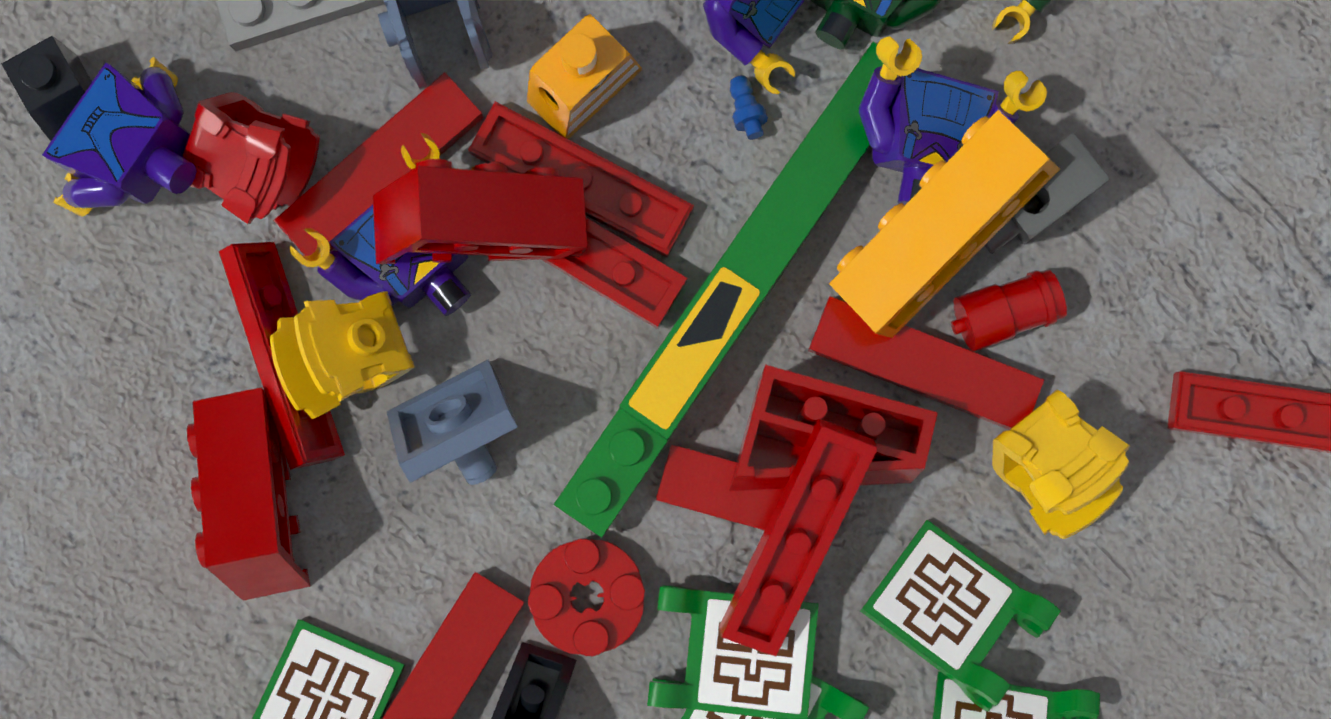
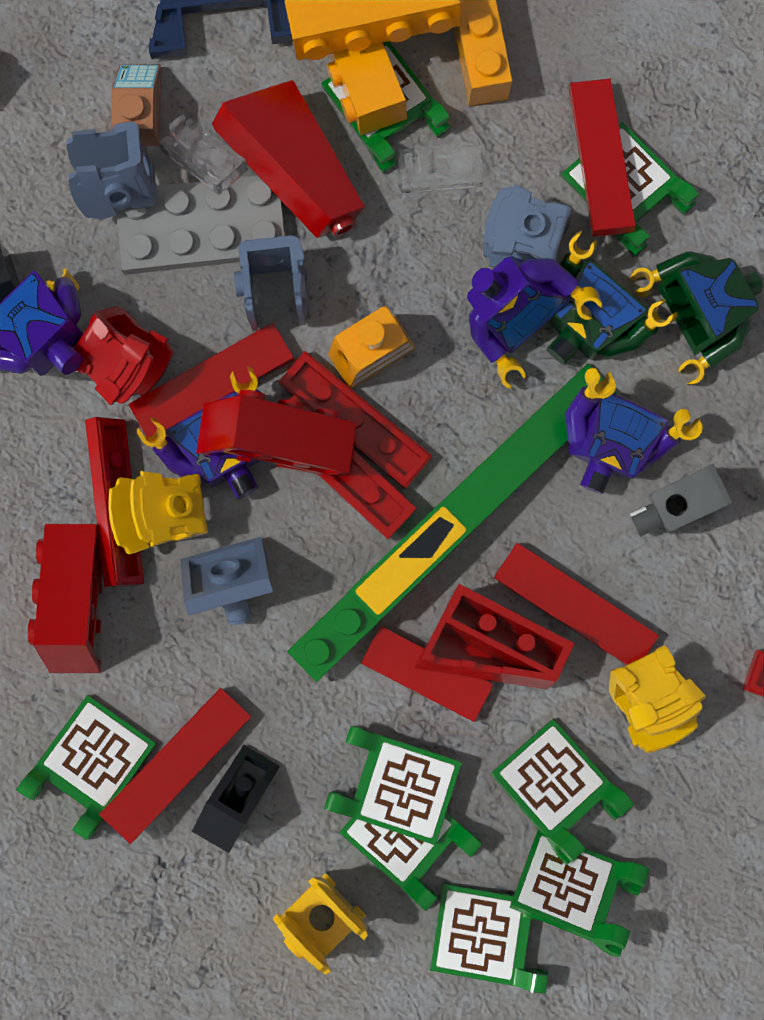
camera: 10 degrees right, 0 degrees up
(591, 630) = (296, 747): red plate -> none
(748, 114) = (486, 398): blue piece -> none
(797, 537) = (455, 712): red plate -> none
(943, 224) = (606, 510): light orange brick -> none
(1008, 309) = (637, 580): red piece -> none

